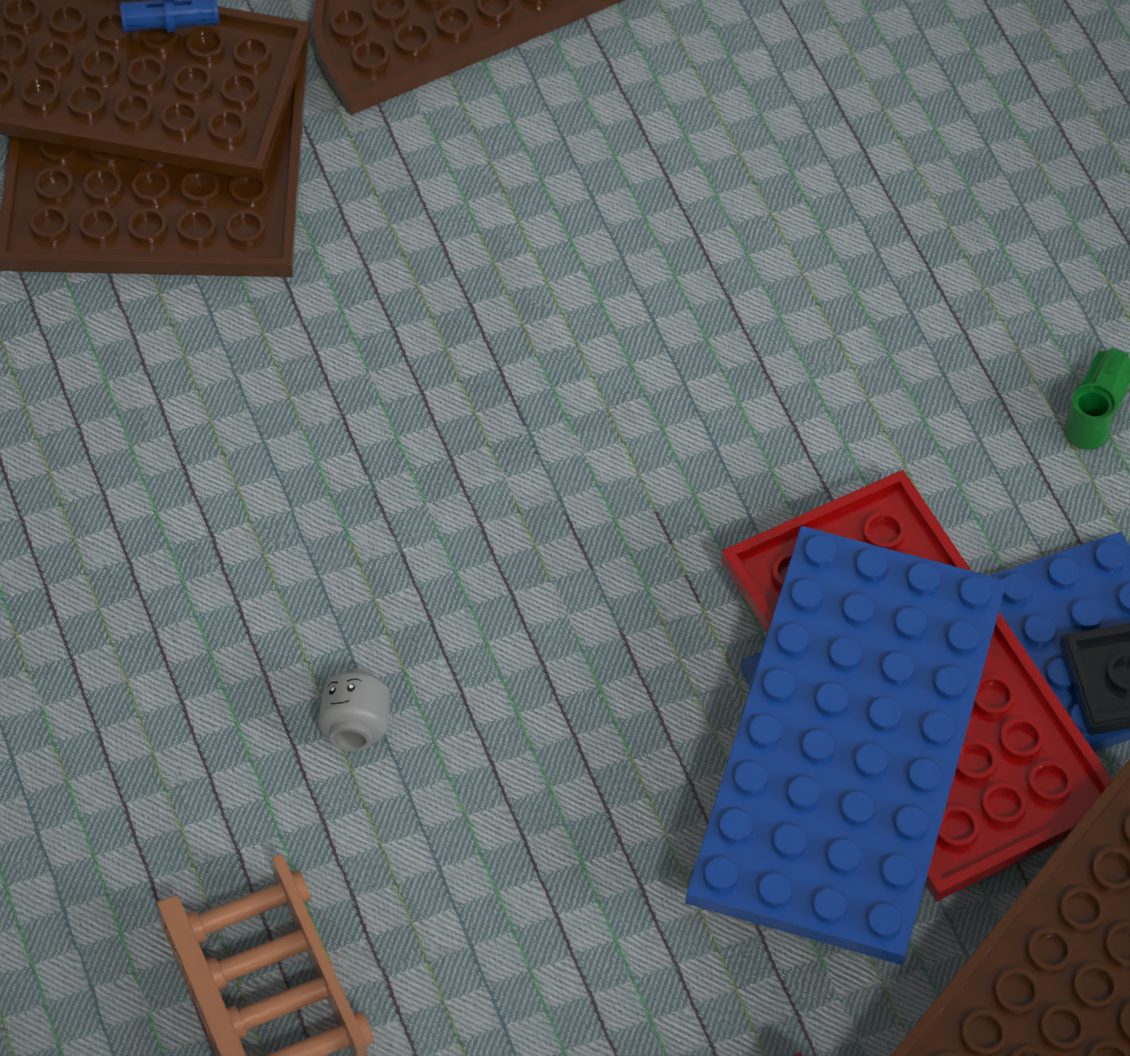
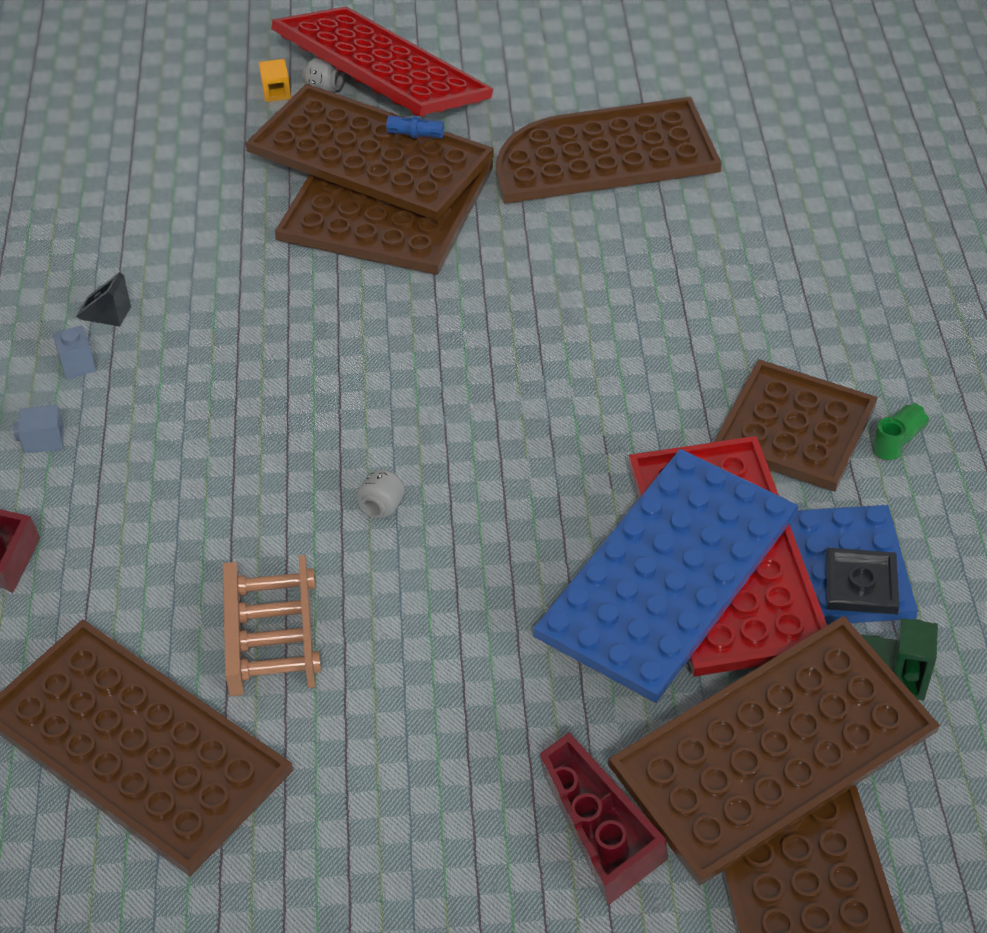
camera: 20 degrees right, 10 degrees down
(950, 414) = (801, 422): none -> reddish brown plate

